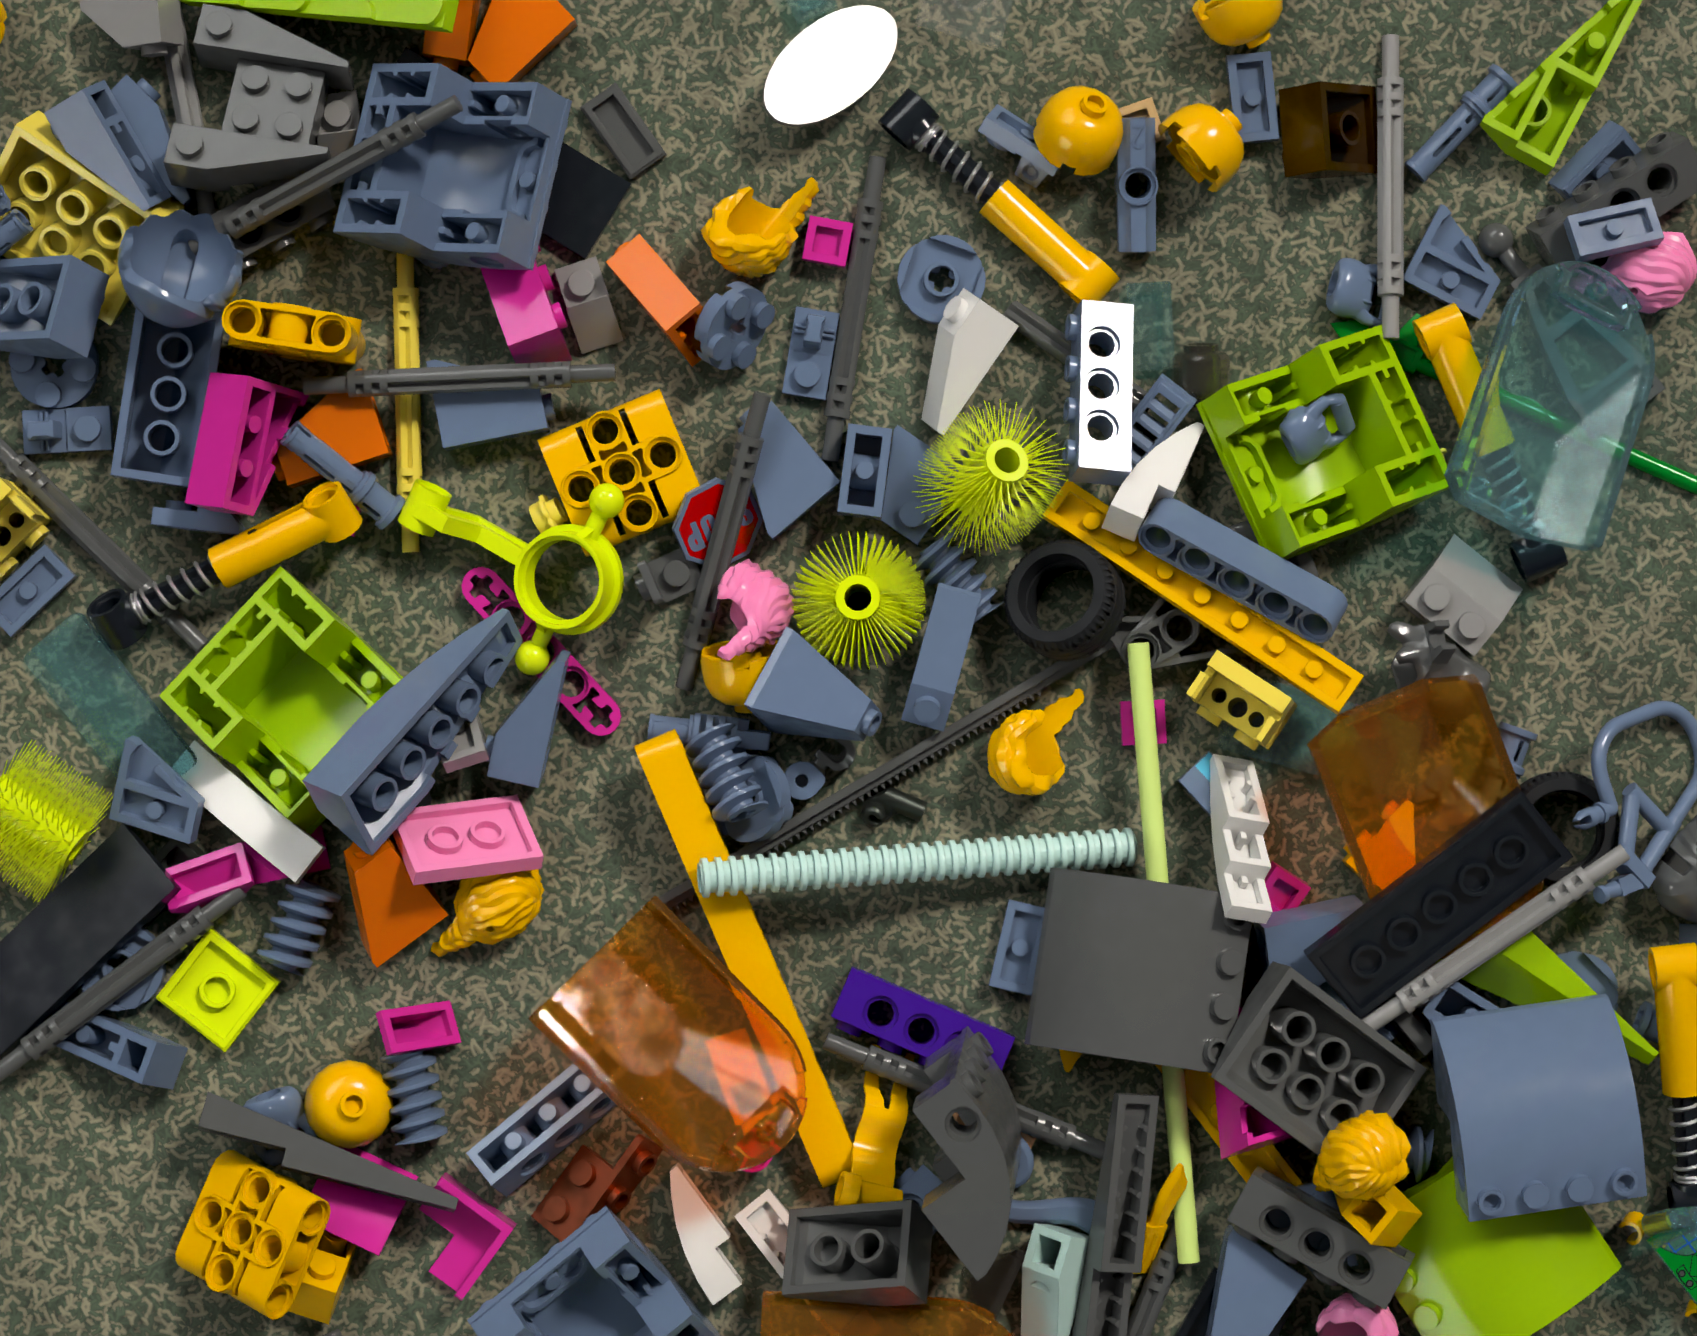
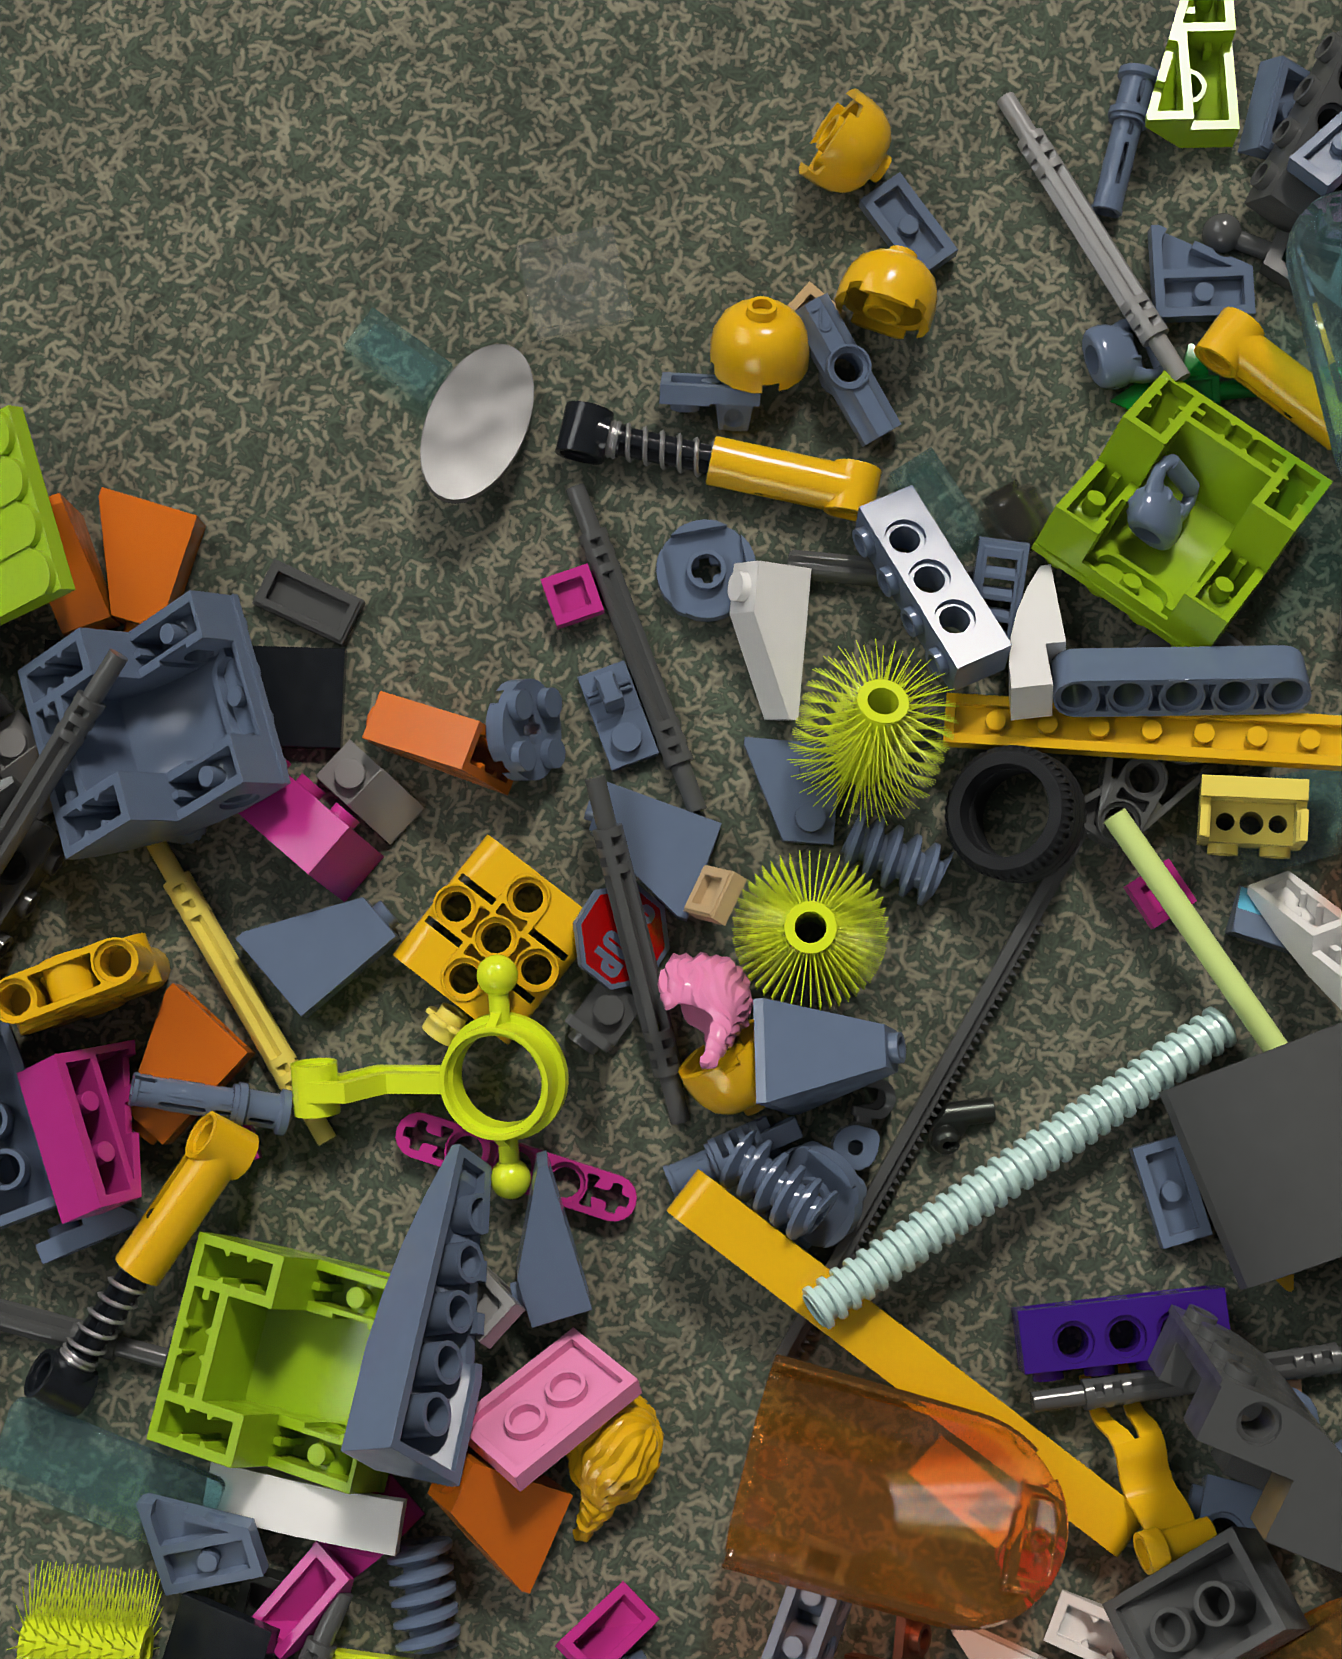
camera: 30 degrees left, 5 degrees down
(459, 379) = (277, 937): dark grey axle -> none
(752, 236) = (495, 631): yellow hair -> none
(803, 532) = (715, 895): none -> tan tile
(864, 471) = (740, 800): sand blue brick -> none
(941, 657) = (925, 942): sand blue slope -> none
(1024, 748) = (1060, 989): yellow hair -> none
(1328, 130) = (999, 216): dark brown slope -> none

